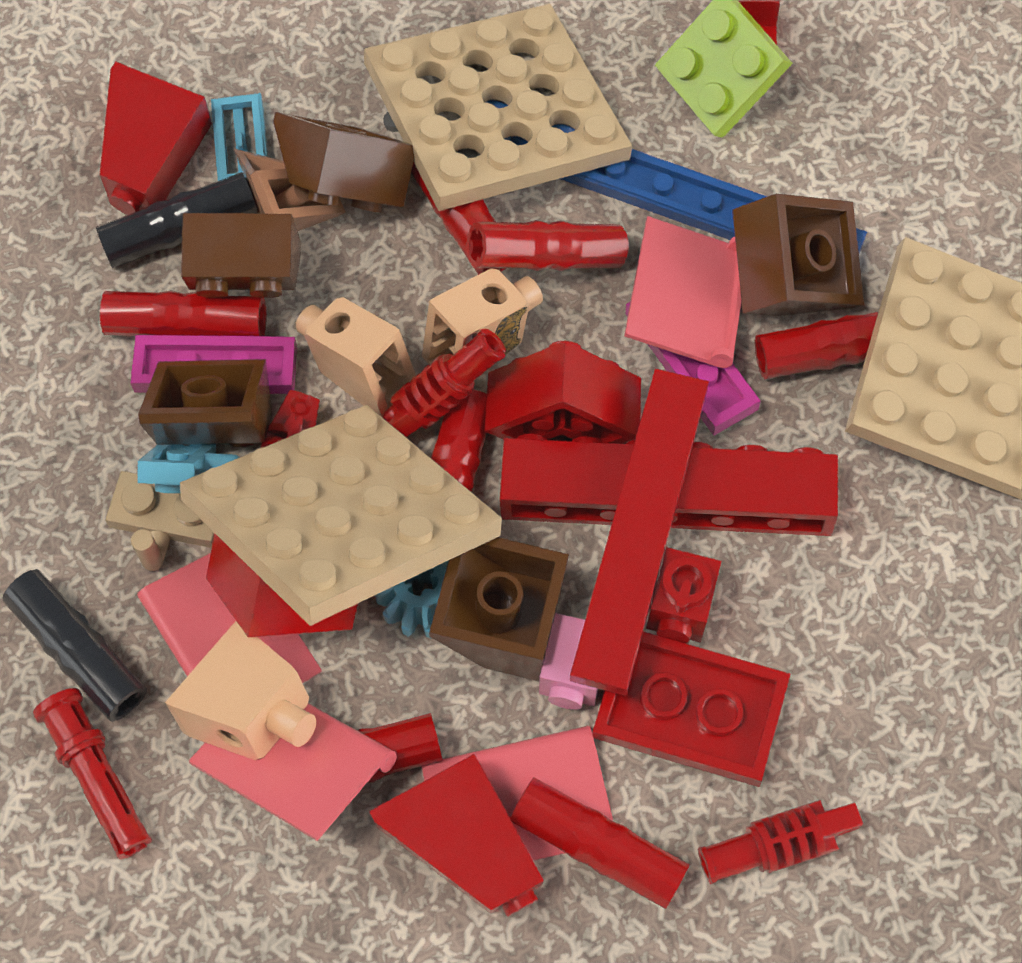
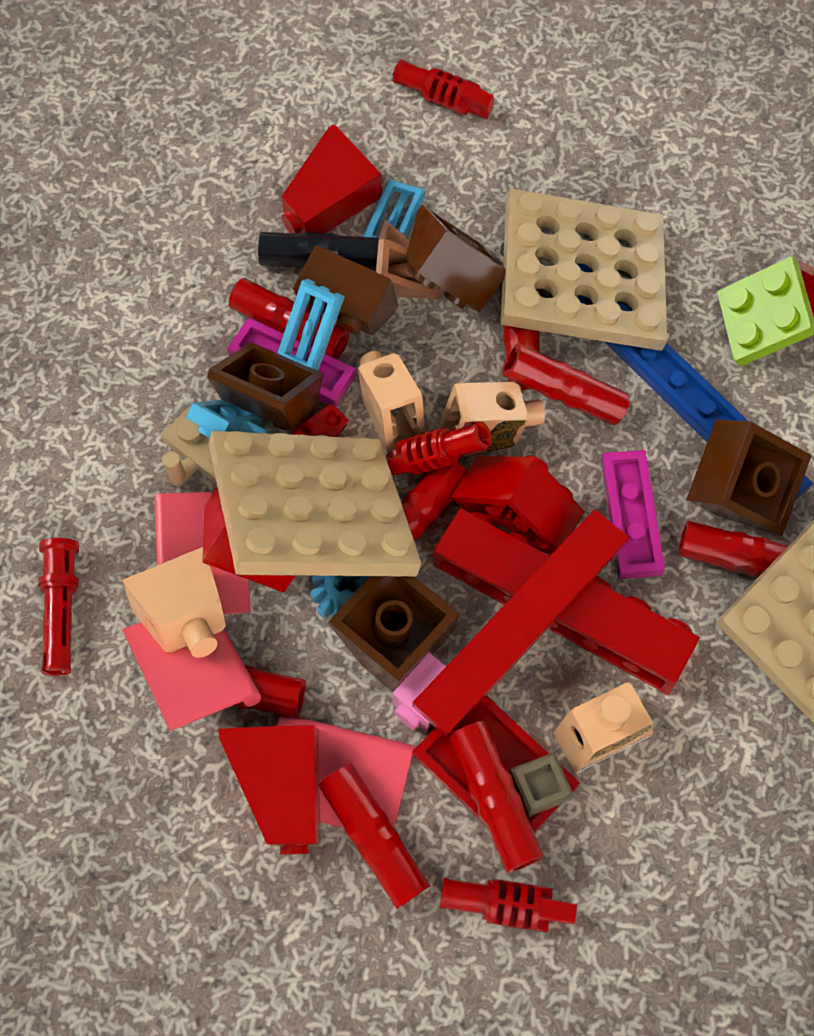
camera: 25 degrees right, 0 degrees up
(74, 645) = (92, 511): black axle -> none
(222, 268) = (325, 330): none -> medium azure tile
(683, 595) = (530, 685): red brick -> none
(686, 294) = (649, 466): coral piece -> none
(712, 731) = (496, 797): none -> red axle
(751, 695) = (541, 784): none -> dark tan tile
(788, 596) = (606, 727): none -> light nougat torso

